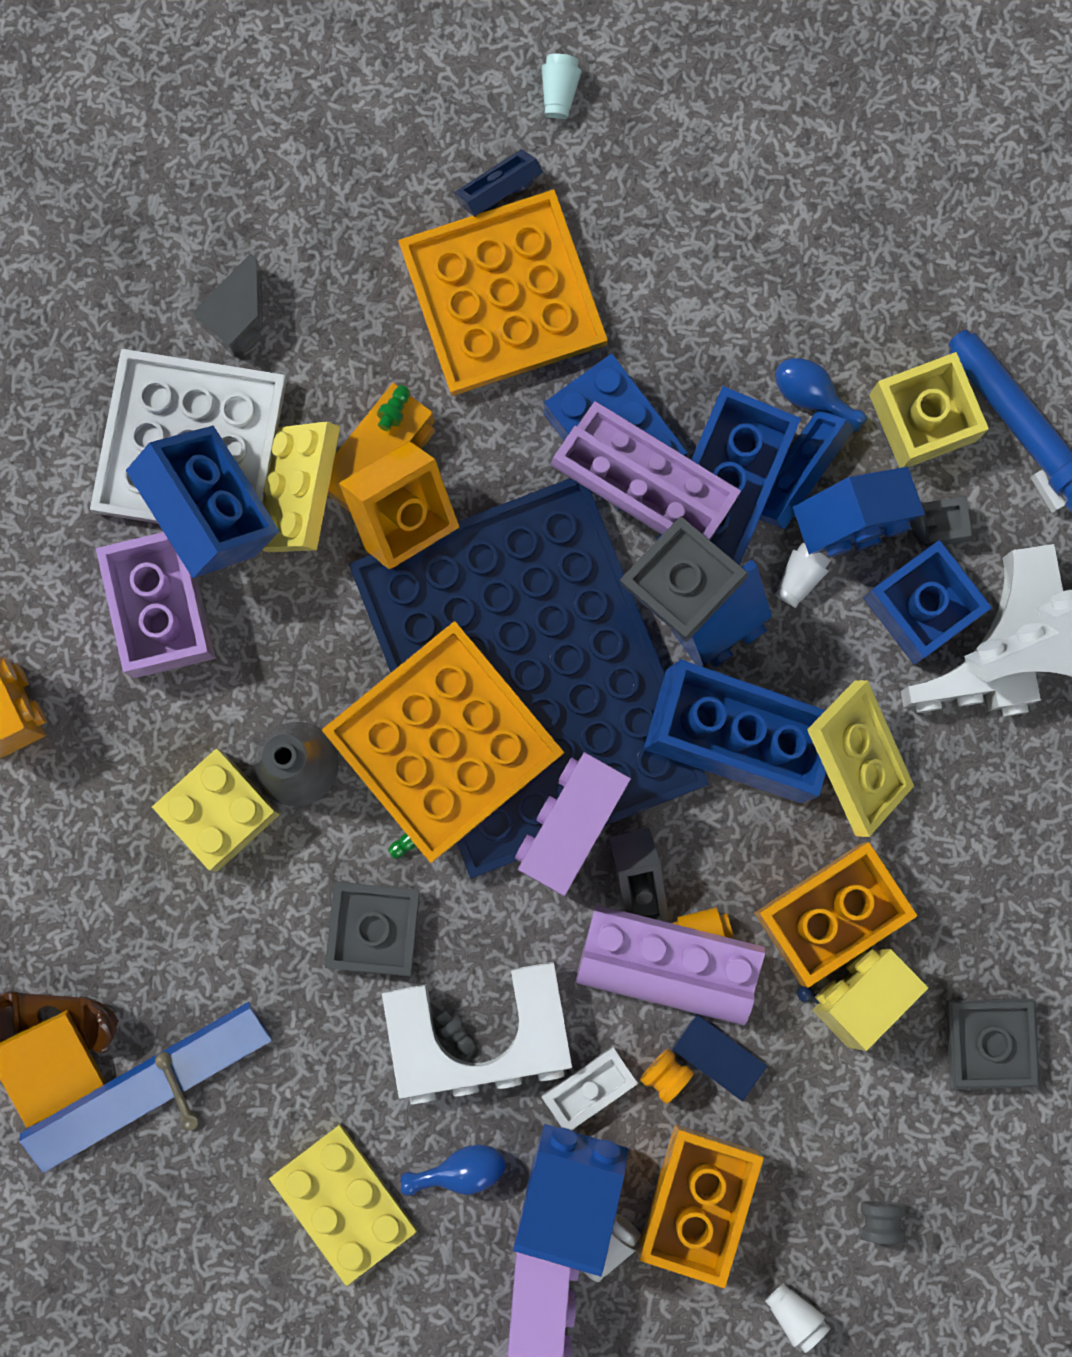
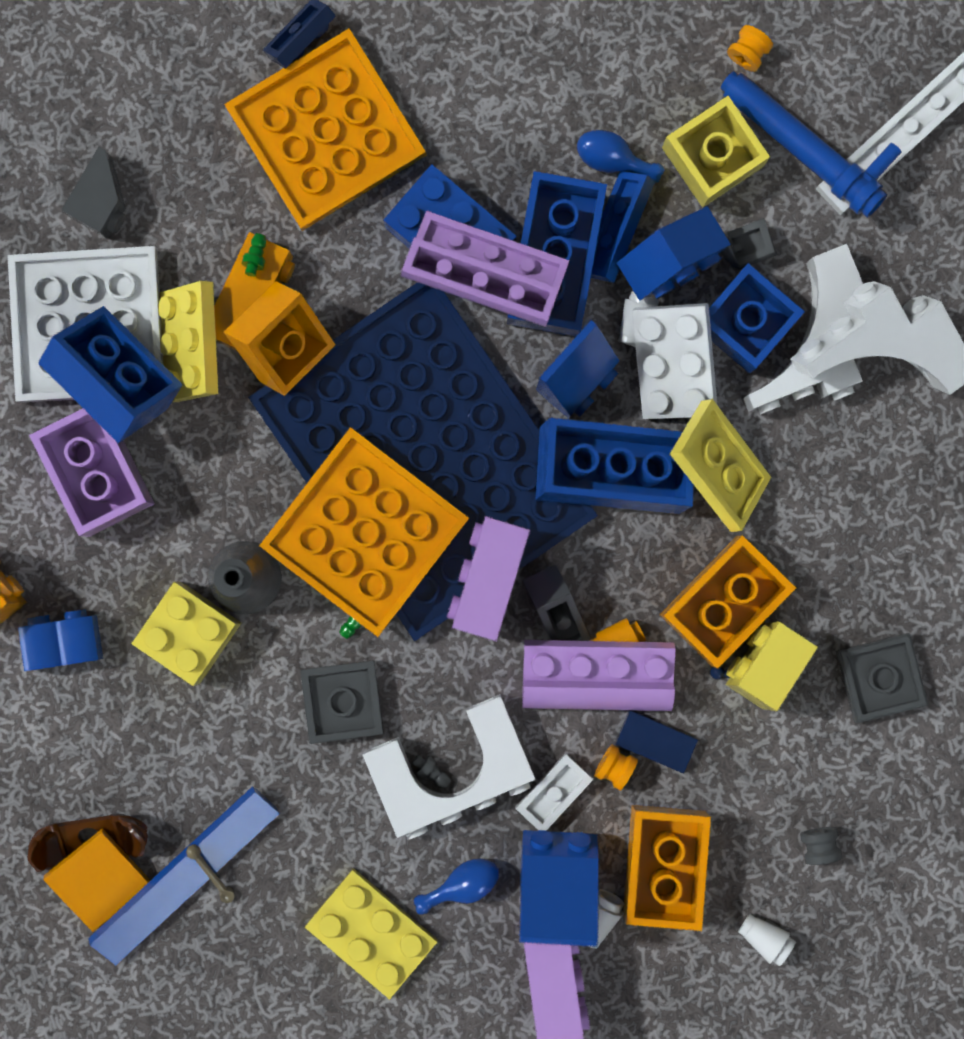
camera: 10 degrees left, 5 degrees up
(72, 788) = (60, 642): none -> blue brick
(683, 578) = (536, 350): dark grey plate -> none
(833, 628) = (674, 359): none -> white plate
(990, 308) = (750, 48): none -> light orange wheel

